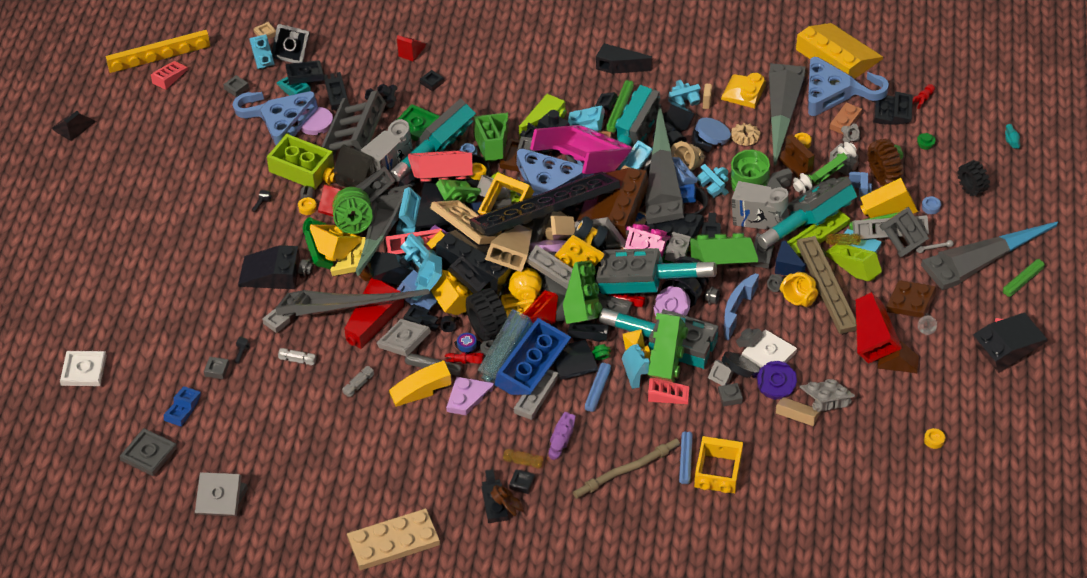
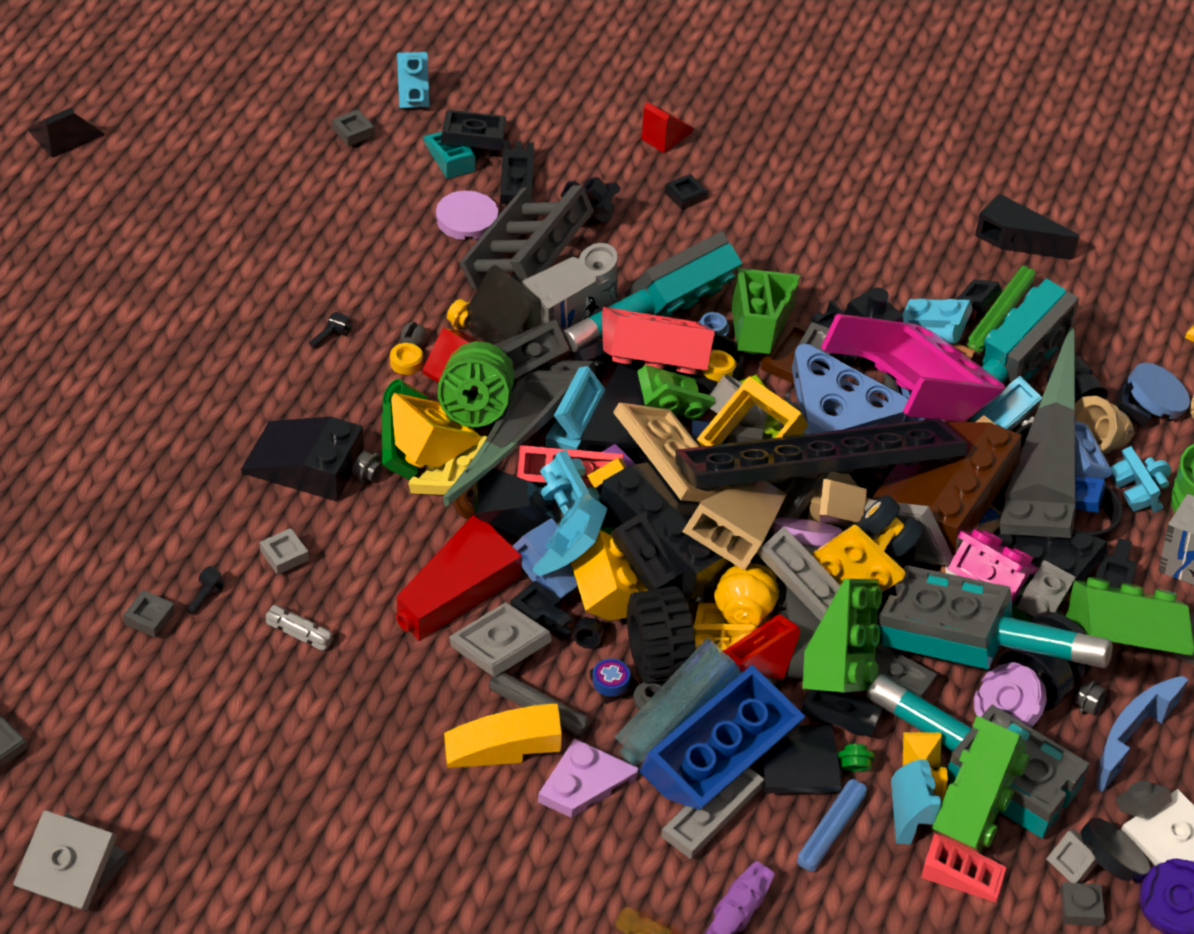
camera: 10 degrees right, 0 degrees up
(158, 51) = (244, 43): yellow plate -> none
(165, 77) = (242, 87): coral slope -> none
(183, 406) = (68, 670): blue slope -> none
(265, 28) = (435, 47): tan tile -> none
(278, 113) = (408, 188): medium blue piece -> none
(290, 44) = (464, 78): black slope -> none
(299, 161) = (416, 277): lime brick -> none
(312, 302) = (359, 535): dark grey plate -> none
(359, 380) = (393, 702): light grey axle -> none
(418, 120) = (637, 252): green plate -> none
(476, 358) = (615, 709): red piece -> none
(544, 106) = (871, 276): lime slope -> none
(637, 301) = (946, 673): red piece -> none
(677, 115) = (1100, 347): black slope -> none
(683, 92) = (1120, 310): medium azure hips -> none
(707, 96) = (1162, 326): tan tile -> none

